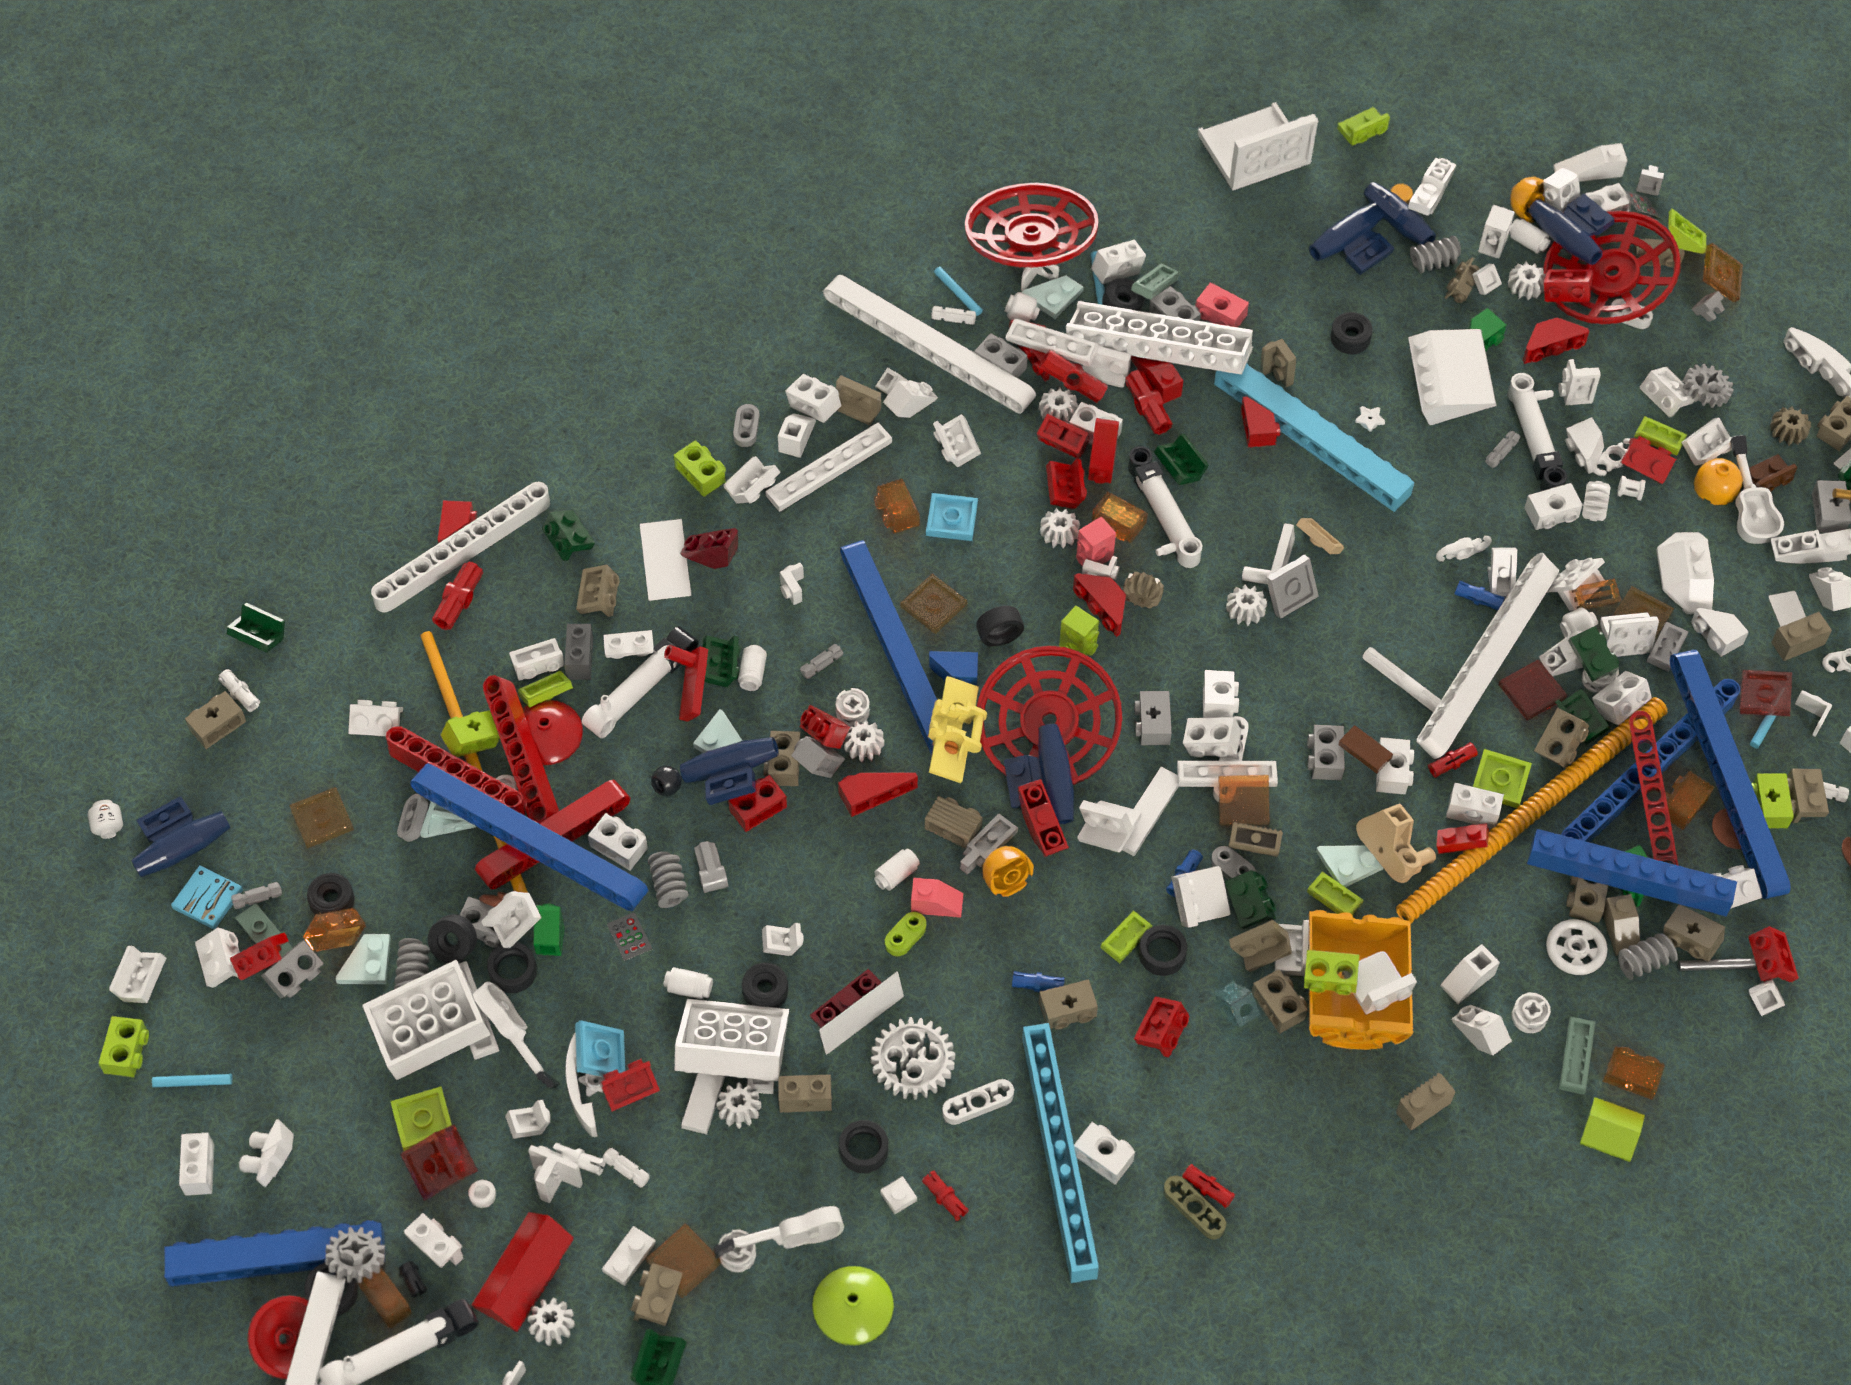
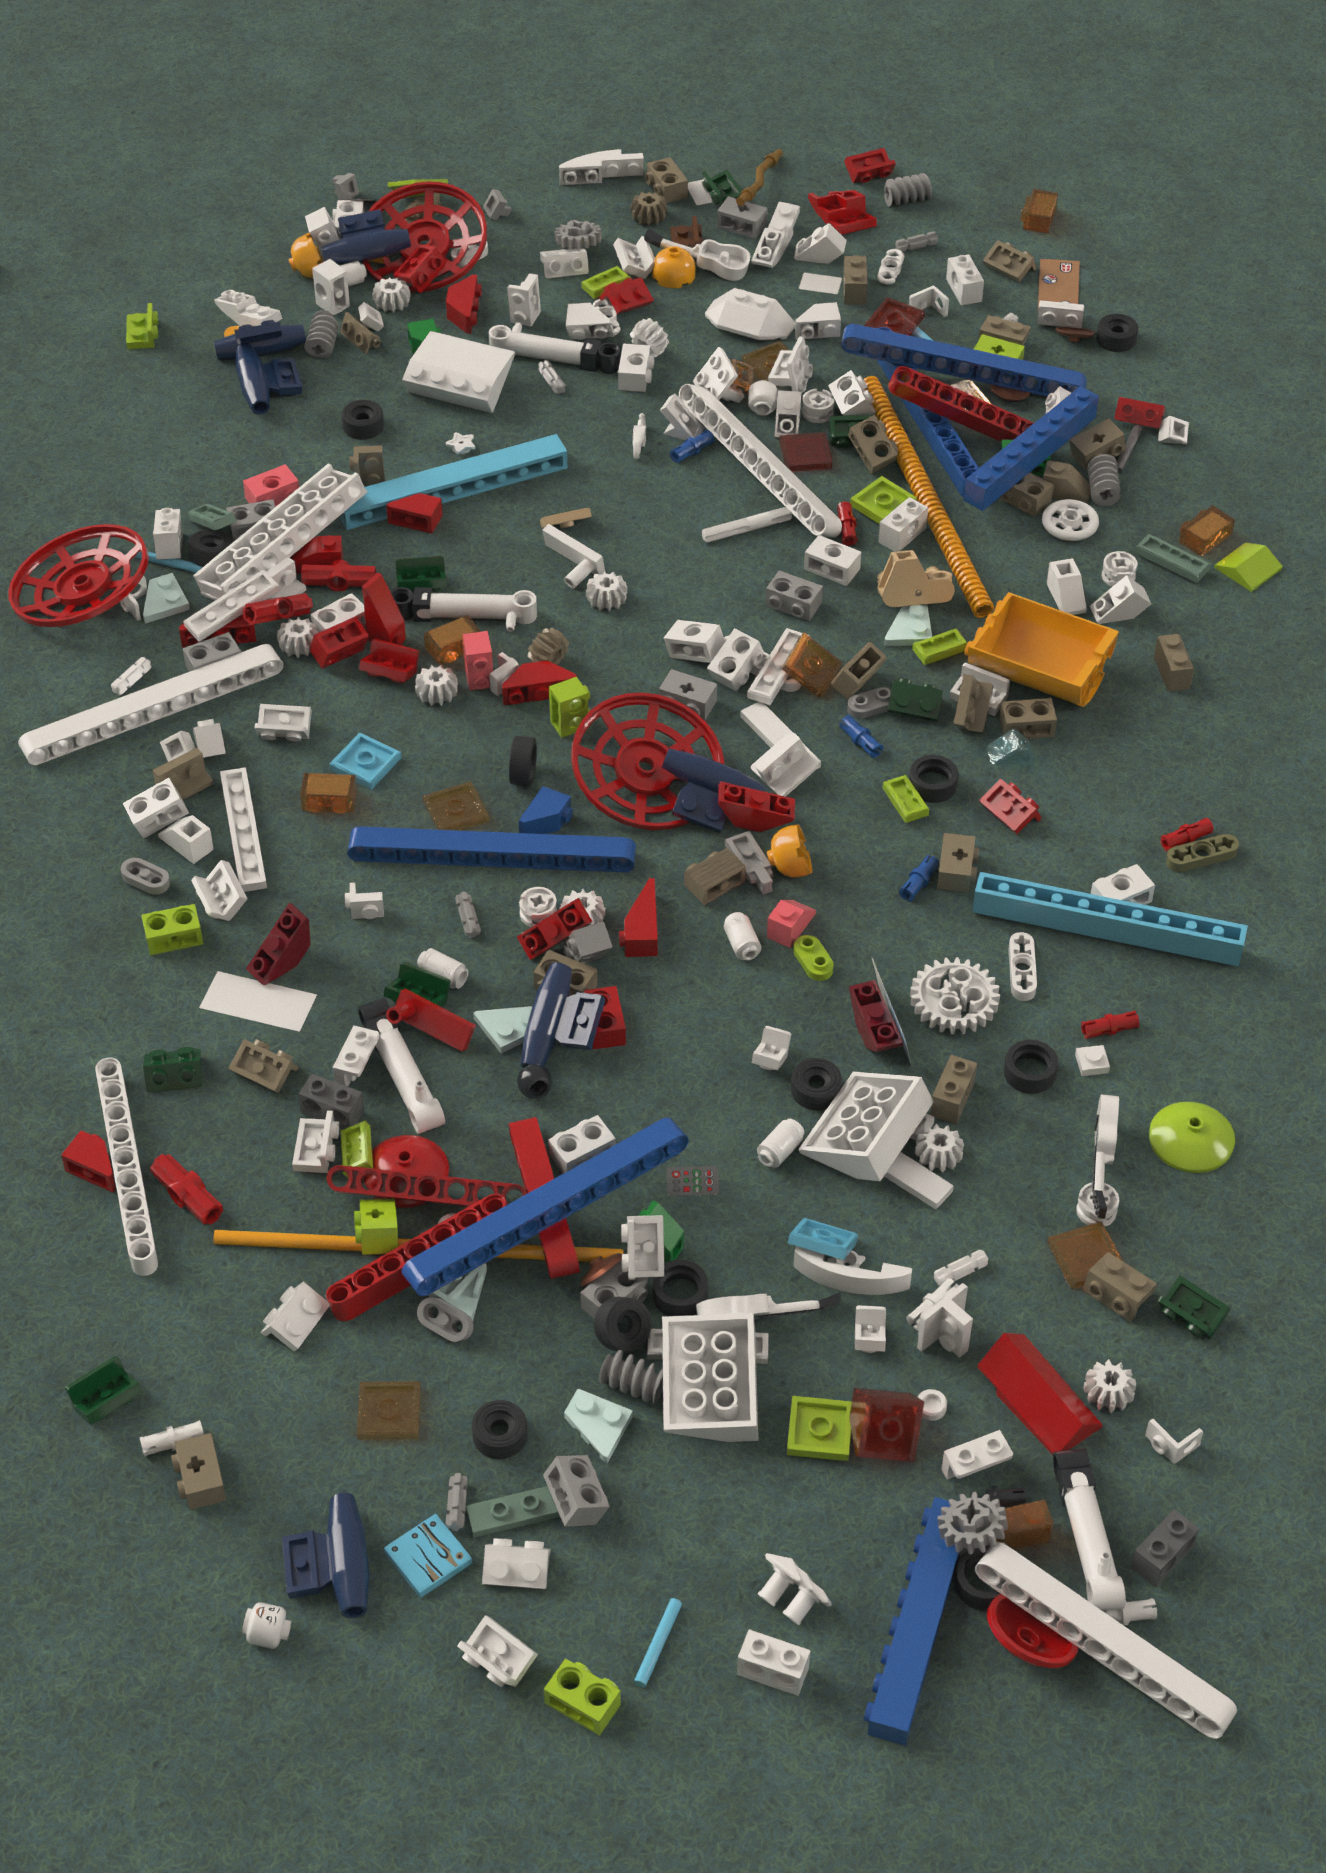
camera: 65 degrees left, 10 degrees down
(258, 956) = (547, 1511): red bracket -> none
(334, 929) = (554, 1427): clear orange brick -> none
(629, 1085) = (873, 1229): red bracket -> none
(629, 1256) = (1061, 1299): white plate -> none
(667, 879) = (644, 1116): light grey piece -> none
(711, 872) = (665, 1082): light grey piece -> none
(946, 730) = (633, 836): light yellow piece -> none
(957, 290) = (102, 664): medium azure bar -> none
(1022, 307) = (164, 622): white head -> none
(1200, 896) = (897, 731): white bracket -> none
(1260, 145) = (110, 400): white bracket -> none
(1292, 586) = (611, 549): light grey hinge -> none
(1332, 965) = (1044, 647): lime brick -> none
(1365, 749) = (814, 562): reddish brown tile -> none
(1380, 983) = (1066, 630): white bracket -> none
(1462, 838) = (933, 542): red plate -> none
(1594, 654) = (809, 387): dark green bracket -> none
(1597, 163) = (304, 201): white slope -> none
(1631, 488) = (645, 314): white bush -> none
(1668, 643) = (820, 360): light grey plate -> none
(1722, 272) = (471, 181): clear orange tile -> none

